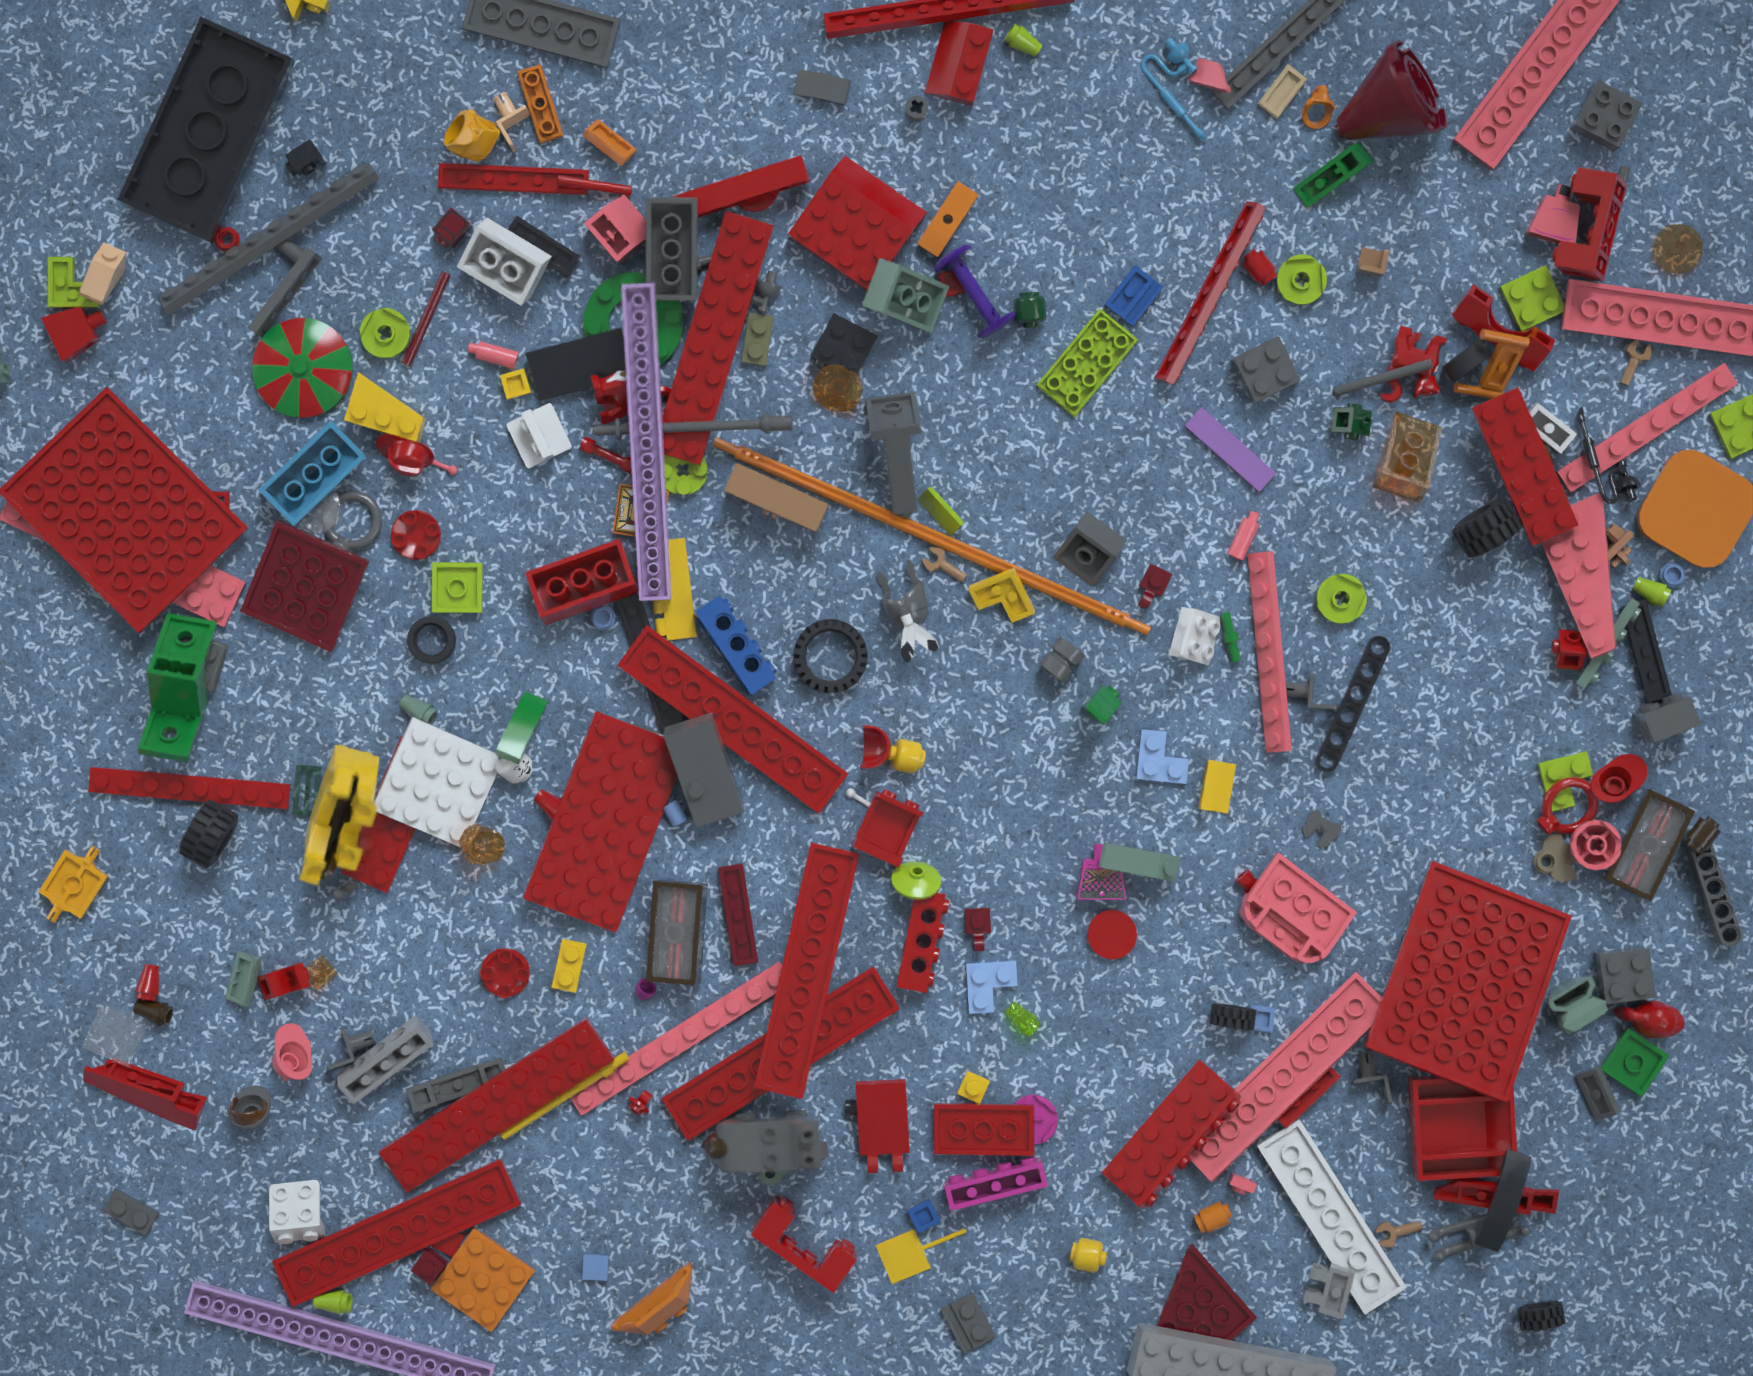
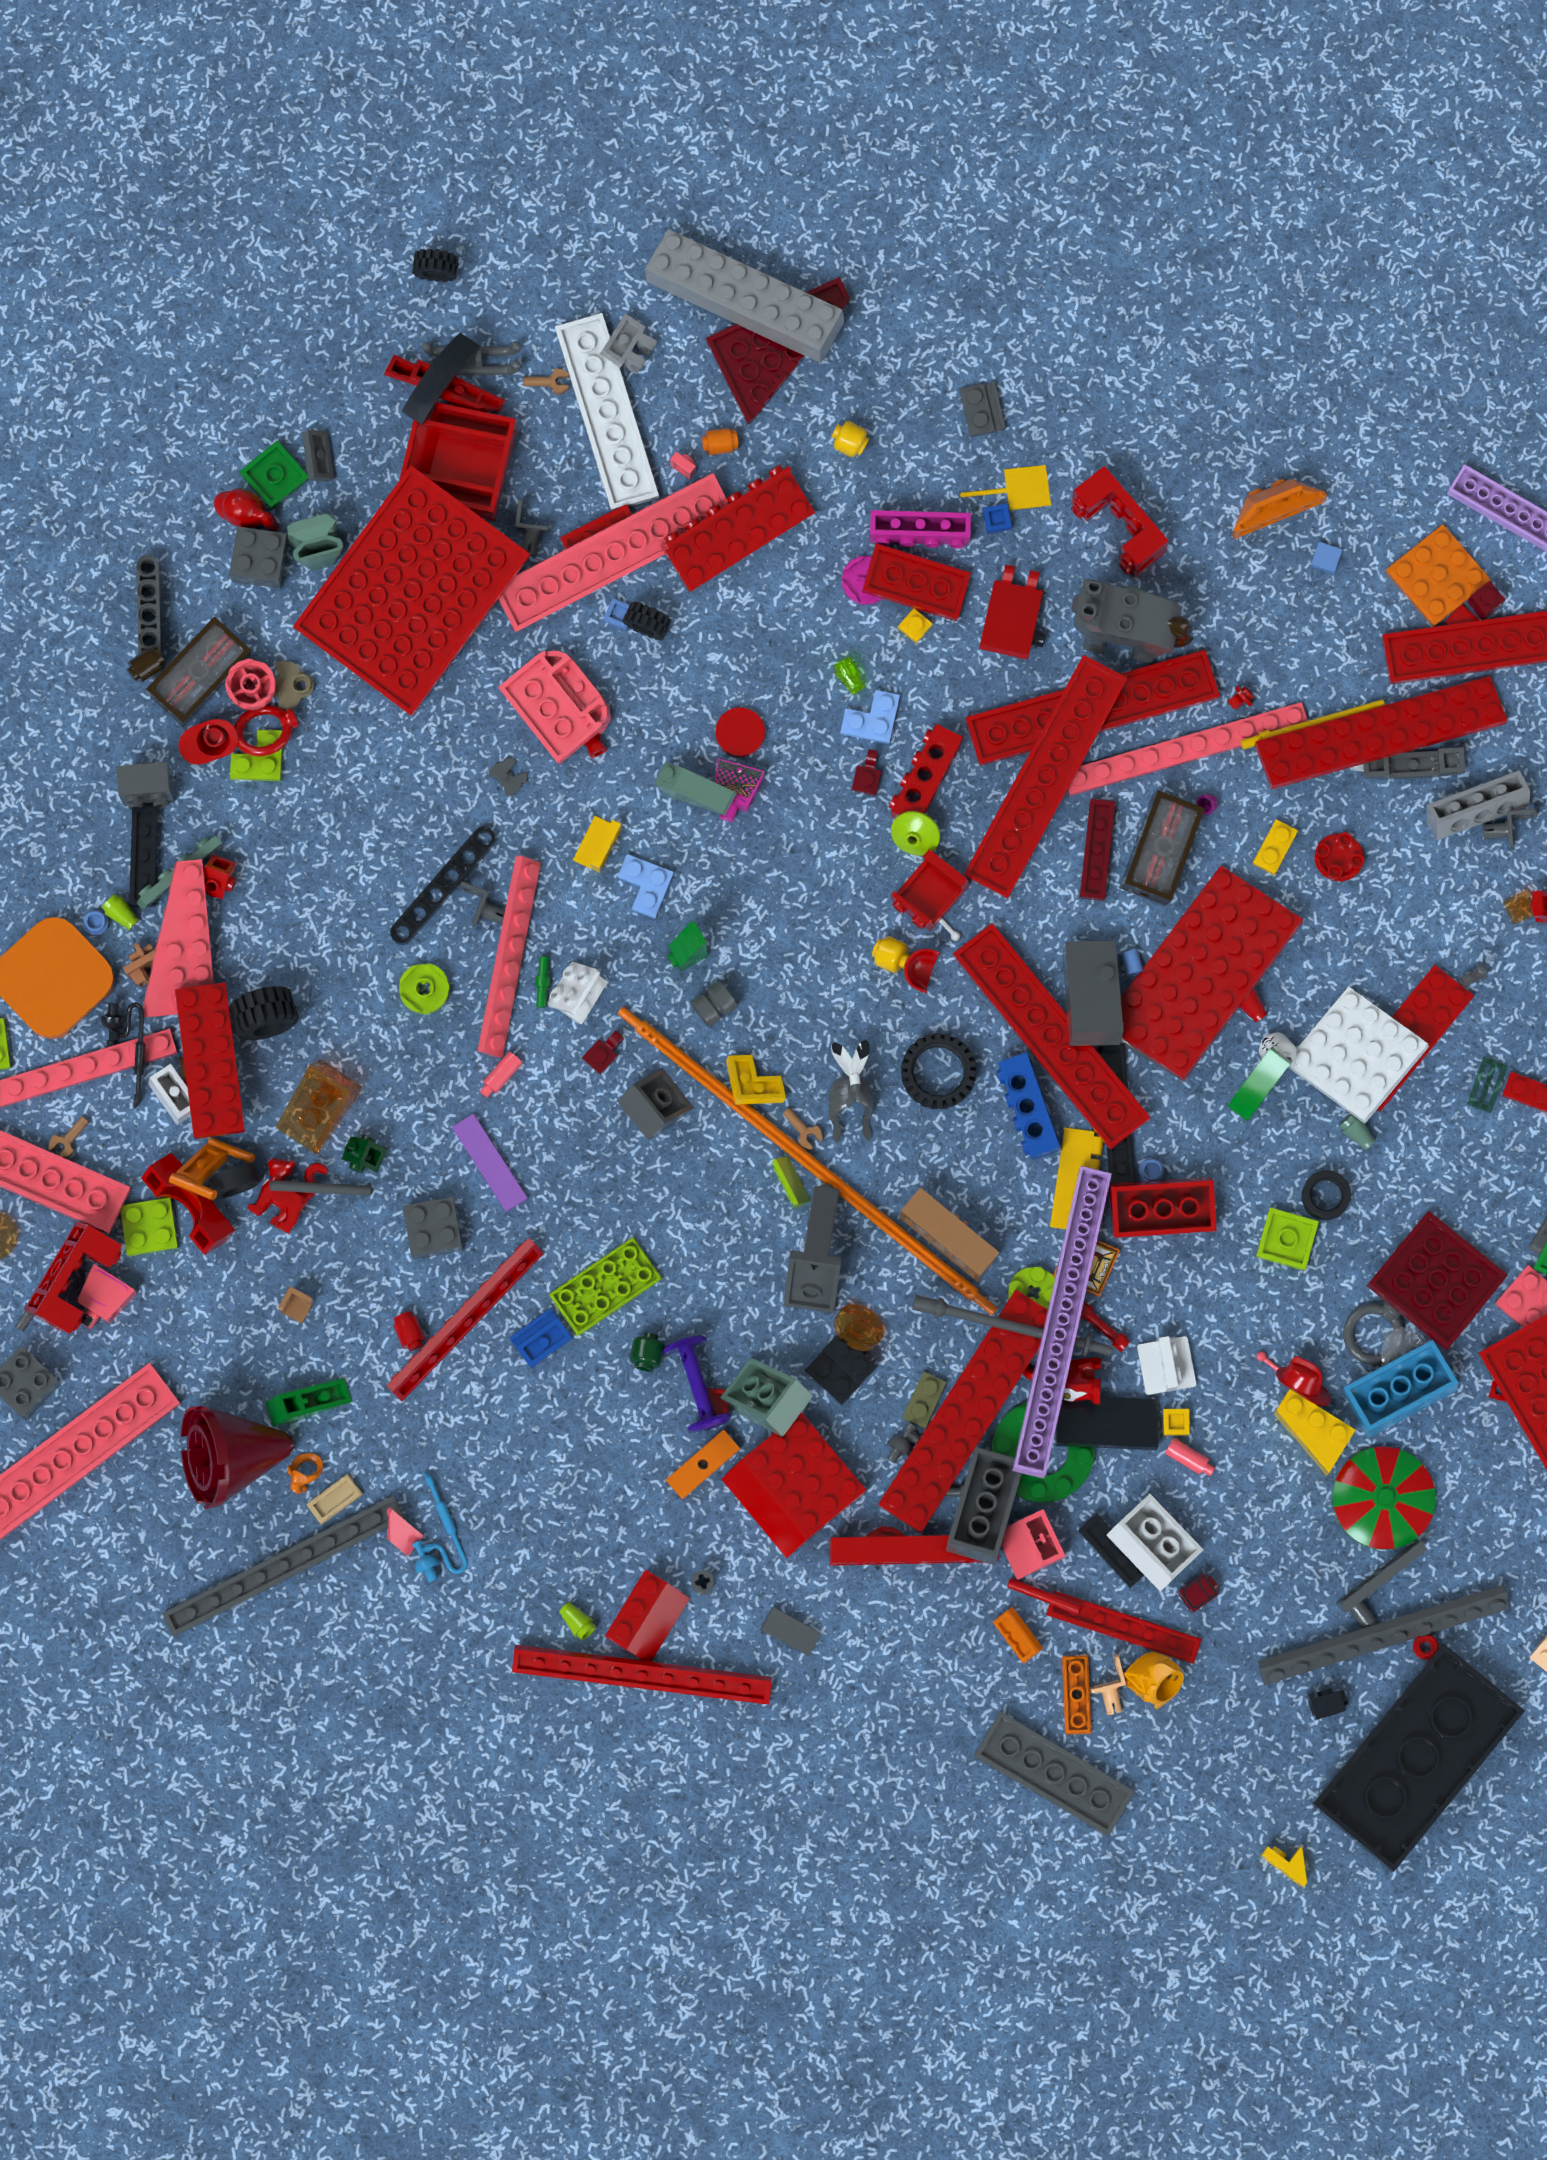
camera: 160 degrees left, 10 degrees down
(339, 813) = (1458, 1051): yellow piece -> none
(382, 319) = (1292, 1494): lime plate -> none
(415, 535) = (1314, 1302): red dish -> none
(426, 318) = (1248, 1512): dark red bar -> none
(481, 844) = (1329, 983): clear orange hair -> none
(1290, 270) = (362, 1296): lime plate -> none

